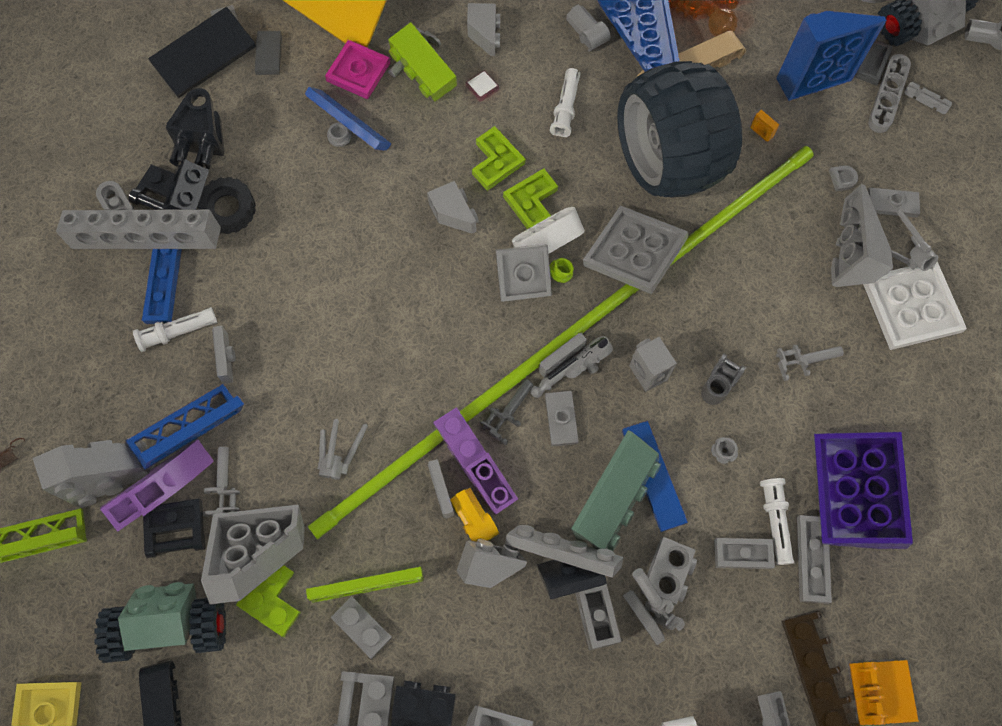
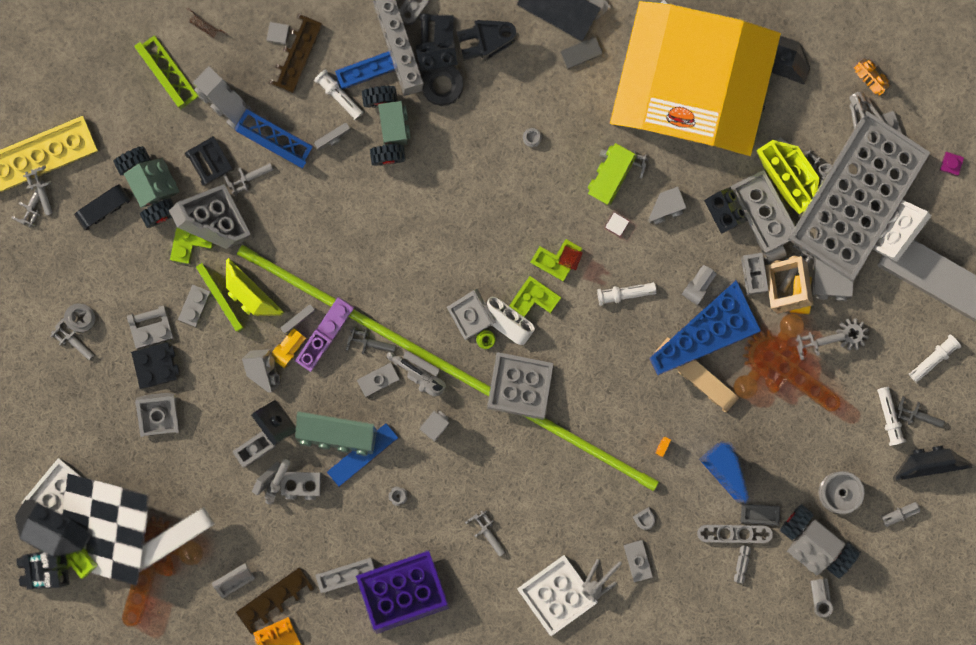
camera: 70 degrees right, 15 degrees up
(57, 374) = (277, 33): none -> light grey tile
(96, 358) = (298, 54): none -> dark brown hinge
(157, 485) = (228, 140): medium lavender slope -> none
(242, 273) = (392, 122): none -> brick
(331, 464) = (286, 241): light grey plant -> none
(347, 119) = (546, 138): blue tile -> none
(357, 69) = (592, 126): dark pink plate -> none
(377, 541) = (248, 293): none -> neon yellow wedge
(451, 208) = (502, 243): light grey slope -> none
(501, 139) = (570, 258): none -> clear red tile
(569, 552) = (286, 412): light grey plate -> none
(679, 129) = (610, 383): black wheel -> none
(724, 377) = (448, 478): flat silver piece -> none
(744, 553) = (332, 529): light grey plate -> none
(783, 555) = (371, 541): white pin -> none
(863, 244) = (578, 549): light grey wedge -> none

